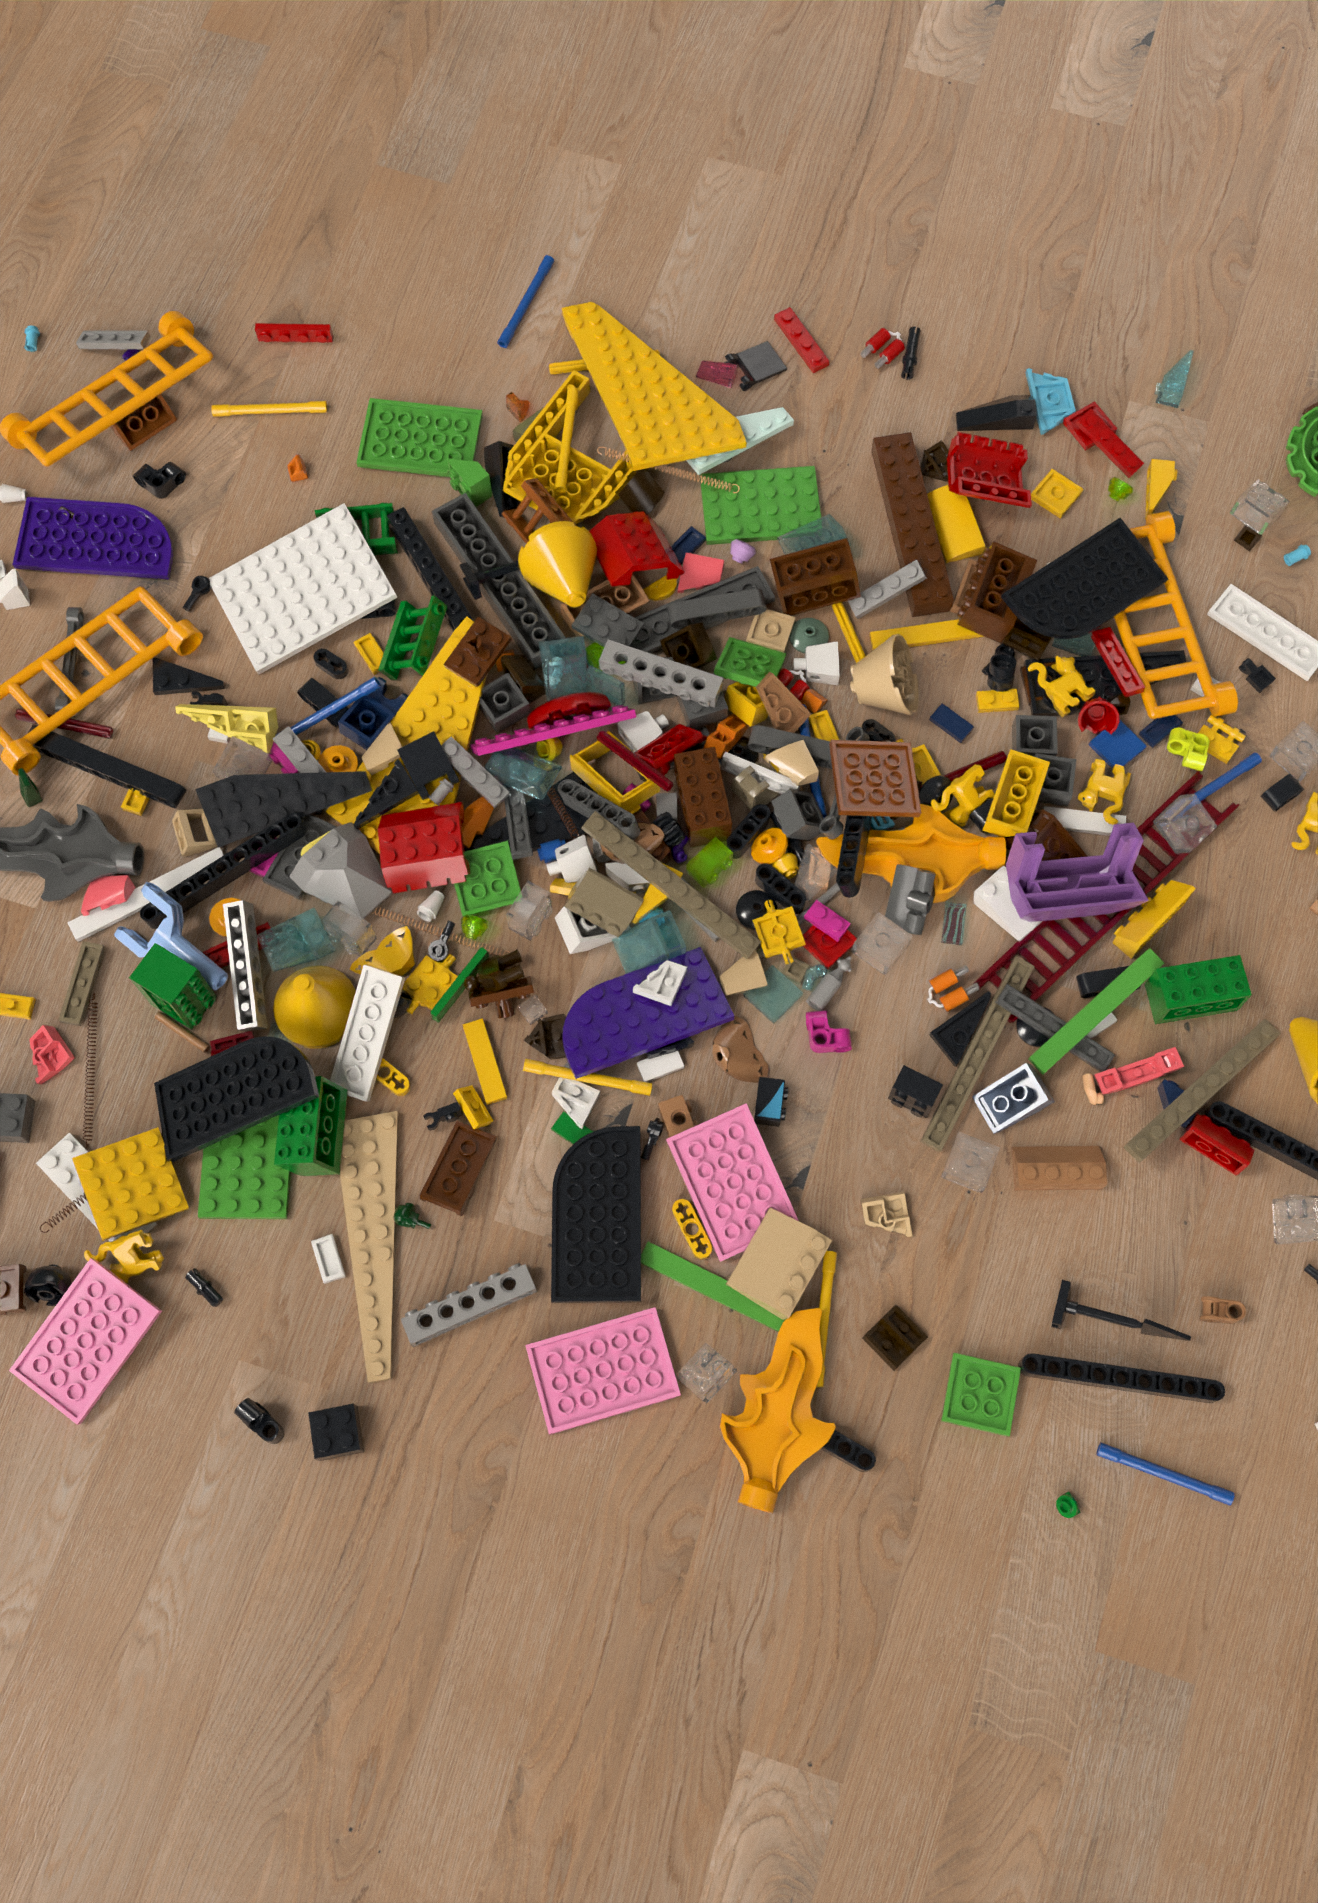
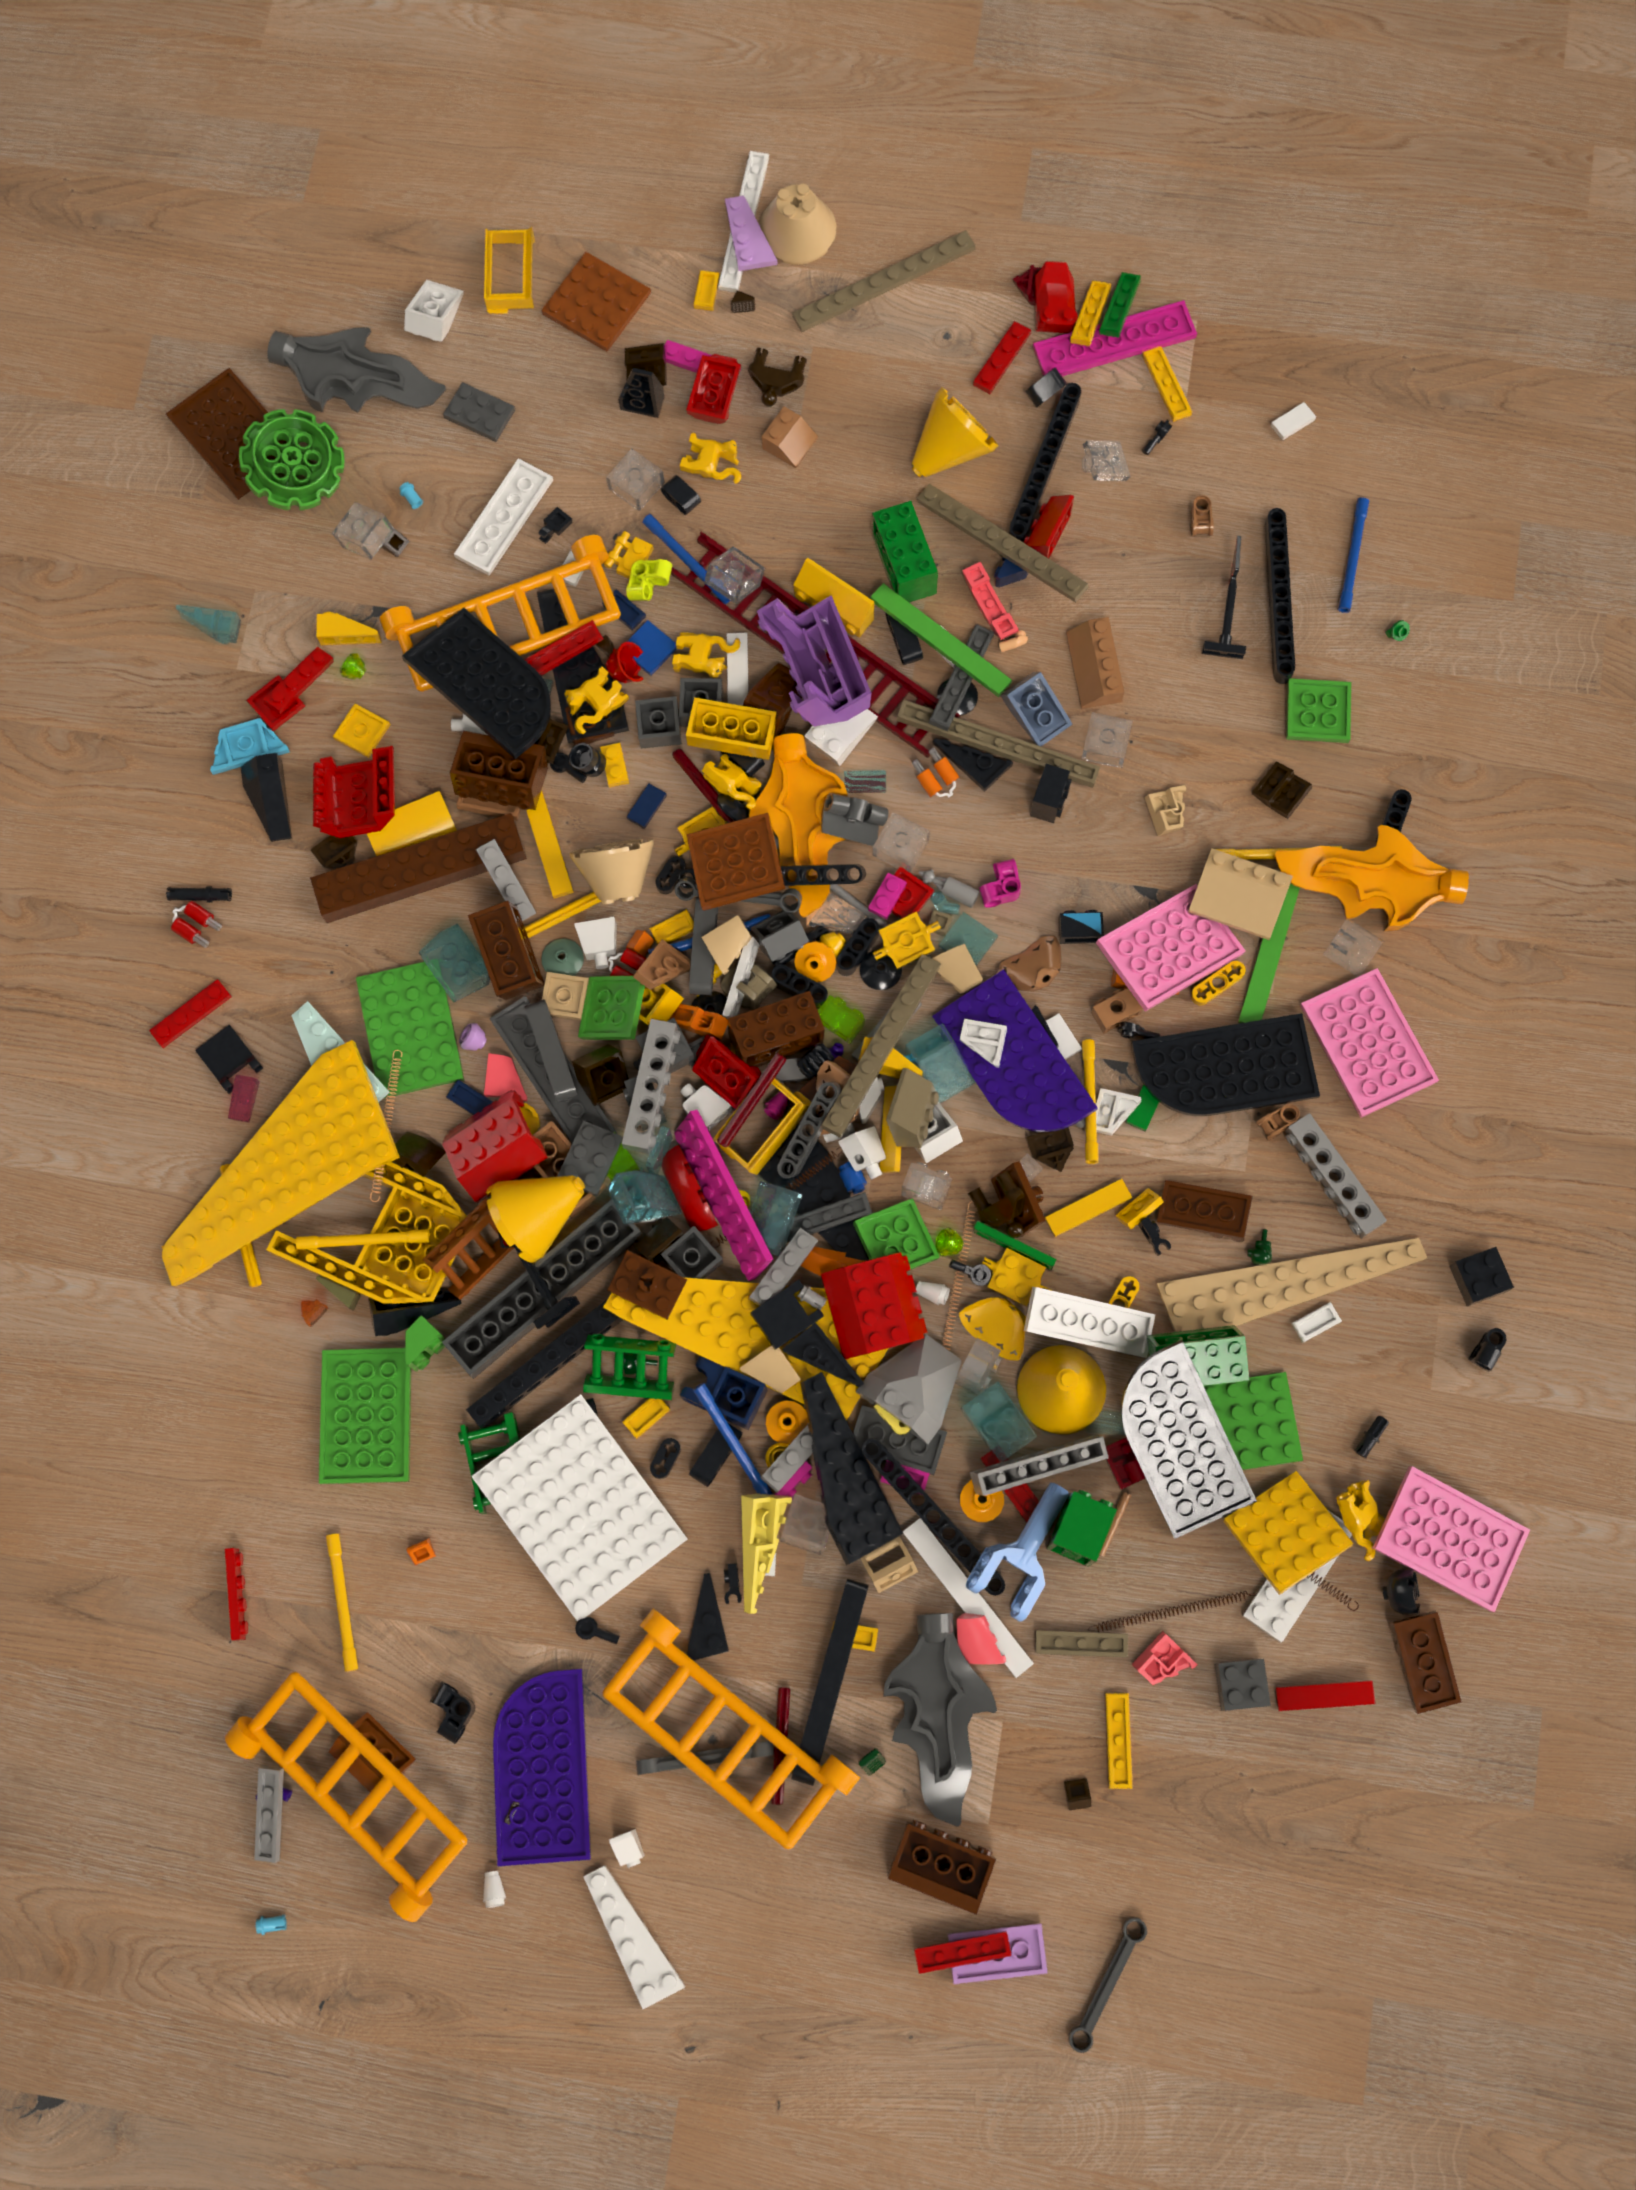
camera: 95 degrees left, 5 degrees up
(508, 332) = (209, 1341): blue piece -> none
(534, 1257) = (1276, 1123): none -> medium nougat piece

